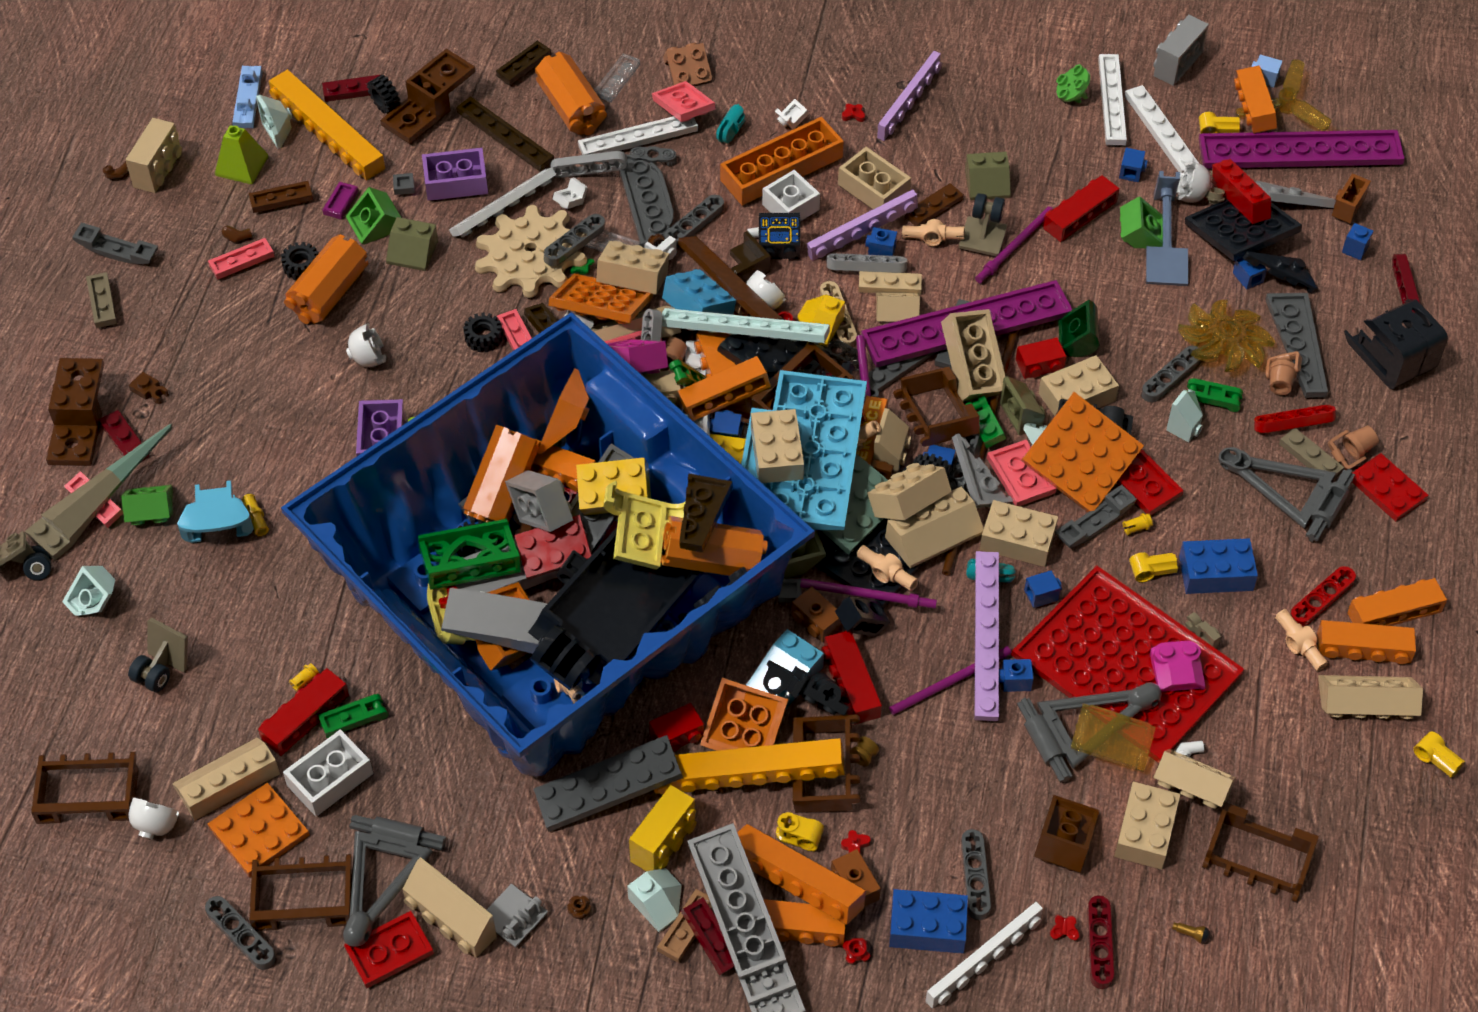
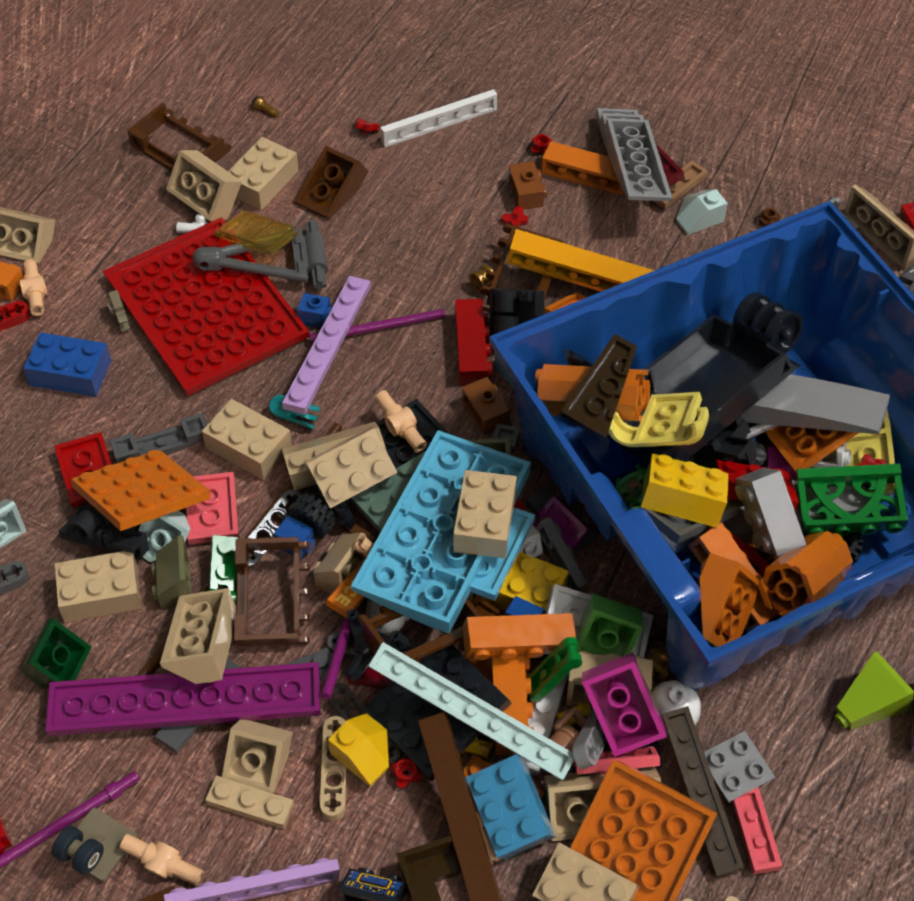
camera: 165 degrees left, 0 degrees up
(483, 323) = (814, 838): black tyre -> none
(663, 830) = (687, 236): yellow brick -> none
(766, 290) = (419, 808): white cylinder -> none
(801, 831) = (563, 228): yellow piece -> none
(801, 876) = (579, 186): orange brick -> none
(862, 616) = (443, 380): black brick -> none
(868, 263) = (267, 839): light grey beam -> none
(881, 242) = (236, 858): blue brick -> none
(912, 600) = (430, 408): magenta bar -> none
(928, 921) = (476, 145): blue brick -> none
(972, 874) = (423, 176): dark grey beam -> none
(979, 480) = (263, 494): light grey wing -> none
(1040, 358) = (118, 638): red brick -> none
(1042, 589) = (251, 377): blue brick -> none
(1096, 941) = (343, 114): dark red beam -> none
(1142, 522) = (119, 428): yellow pin -> none
(1146, 566) = (136, 383): yellow piece -> none
(1177, 666) = (164, 278): dark pink slope -> none

